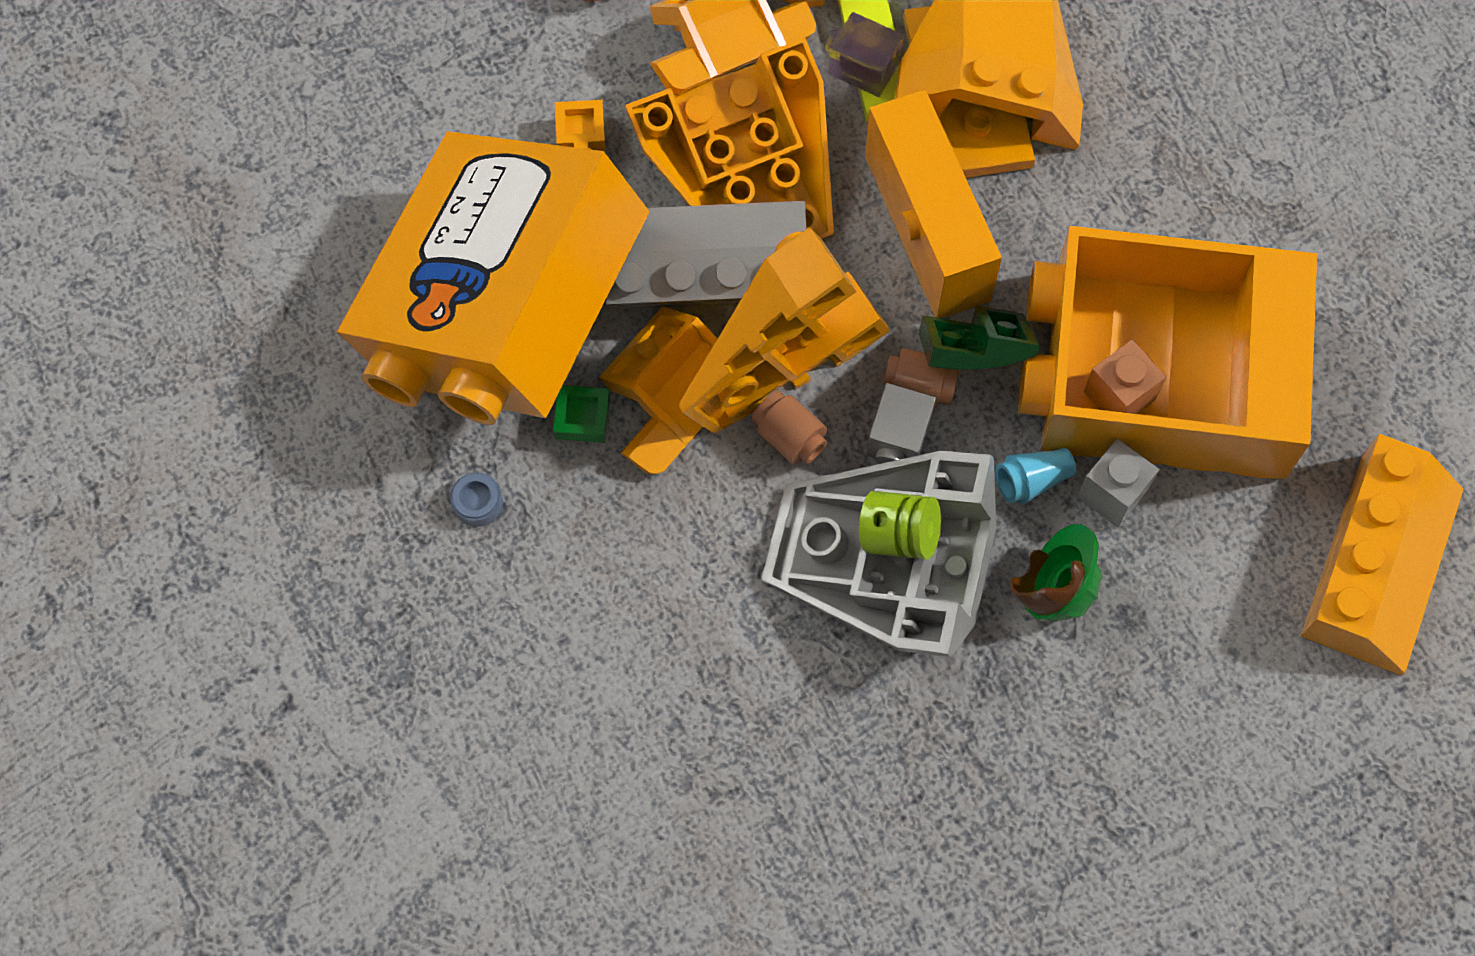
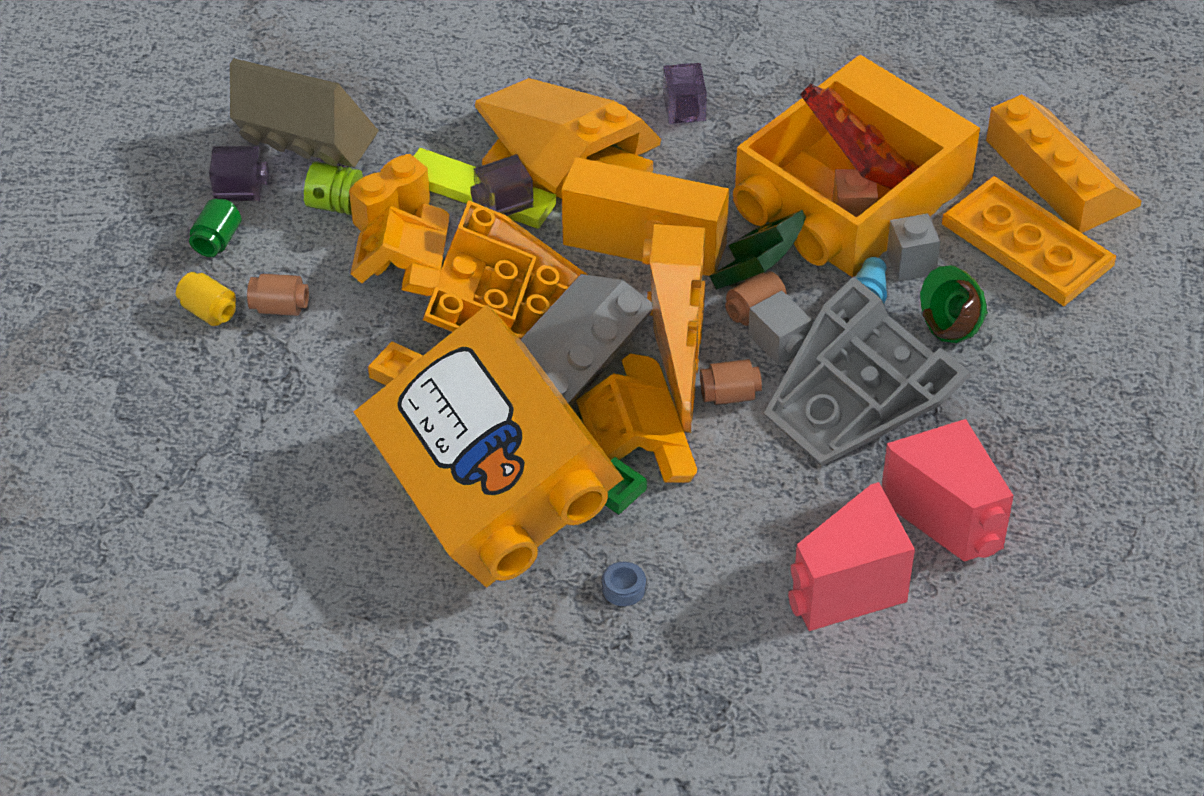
camera: 55 degrees left, 20 degrees down
(625, 691) = (852, 563): none -> coral slope
(793, 730) = (949, 489): none -> coral slope
(905, 526) = (859, 350): lime piece -> none
(1153, 123) = (684, 93): none -> clear purple brick
(1177, 340) = (860, 142): none -> clear red plate
(1235, 592) = (1029, 240): none -> light orange plate

